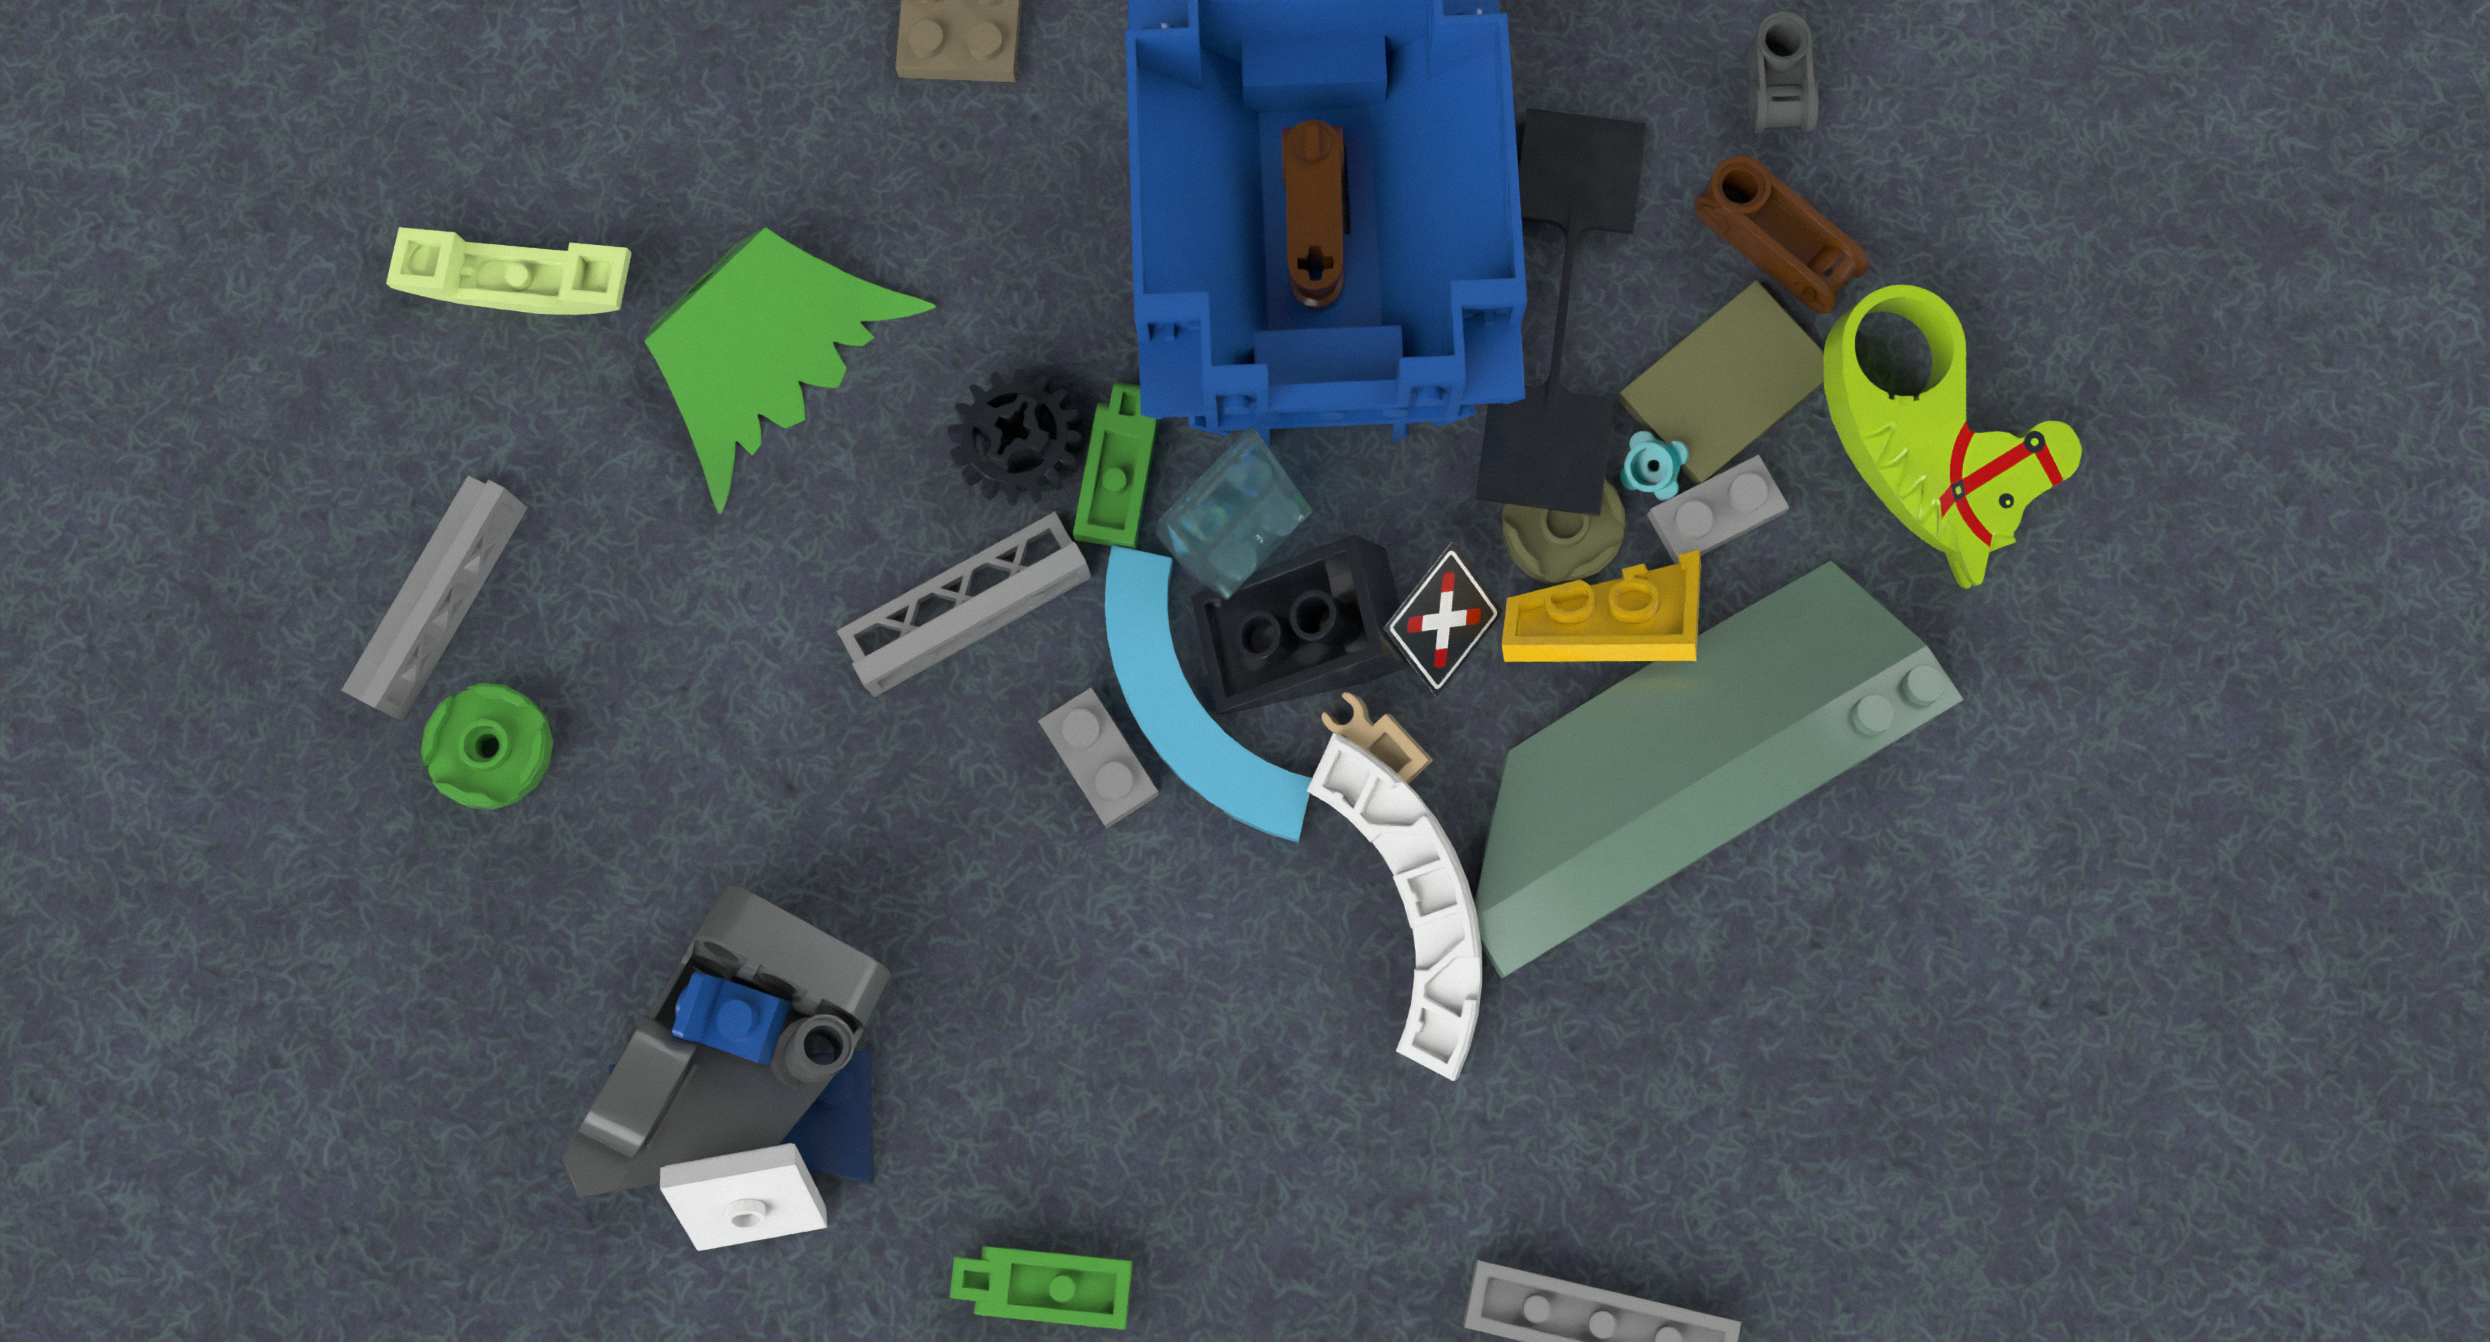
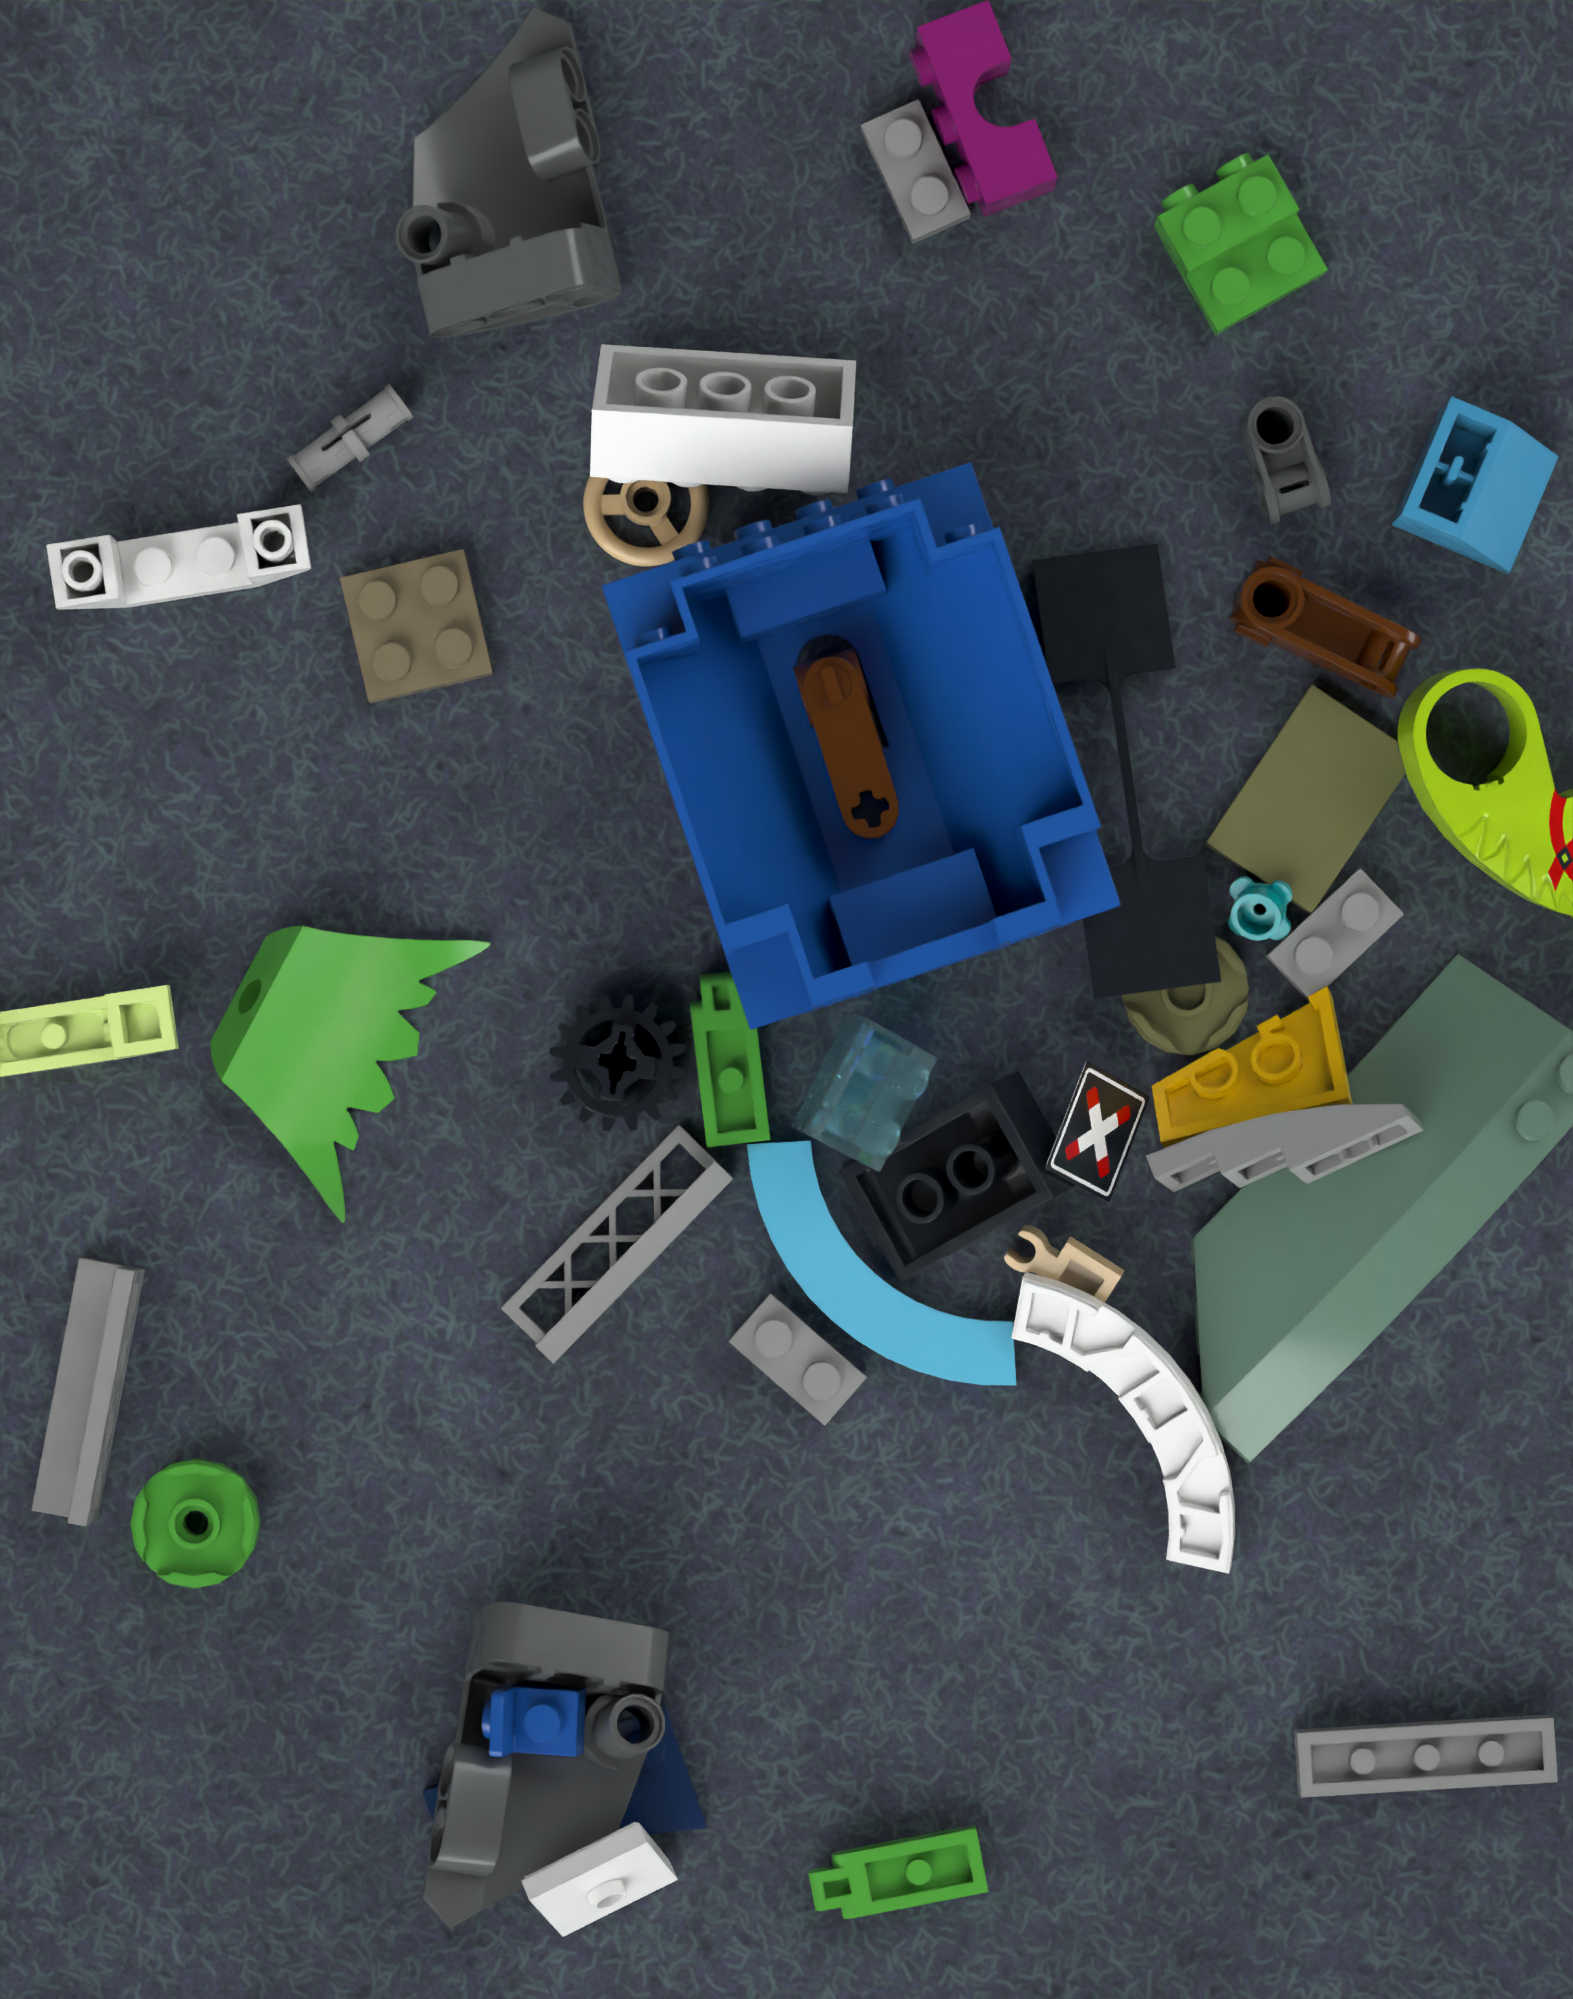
camera: 25 degrees left, 10 degrees up
(1646, 674) = (1305, 1140): none -> light grey slope
(1955, 142) = (1476, 485): none -> dark azure slope

